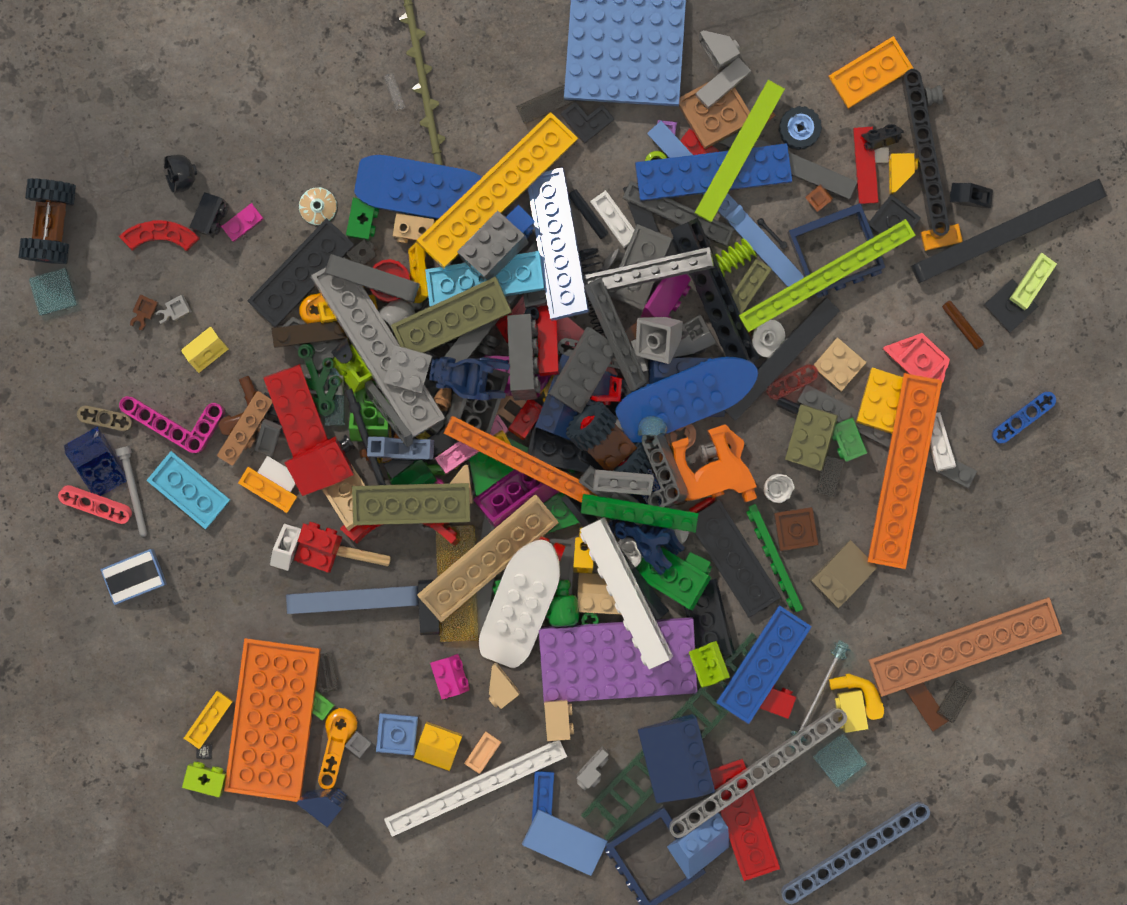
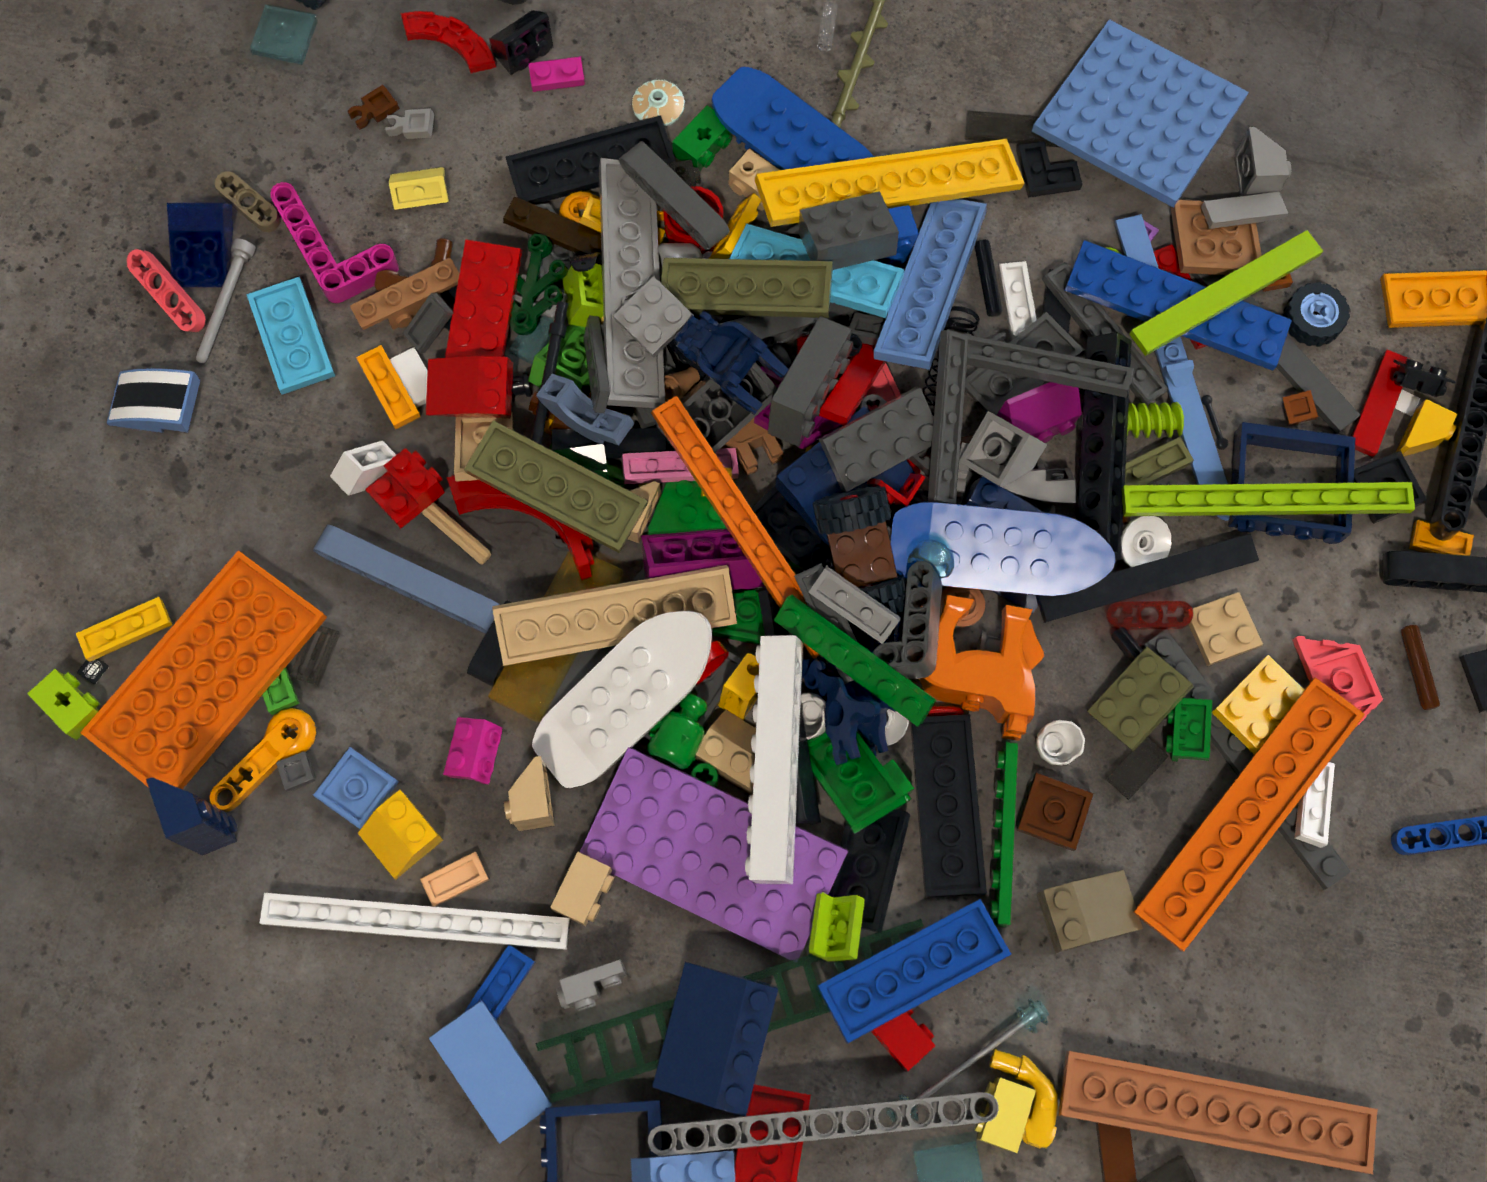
camera: 25 degrees right, 15 degrees down
(525, 419) = (762, 472): red plate -> none

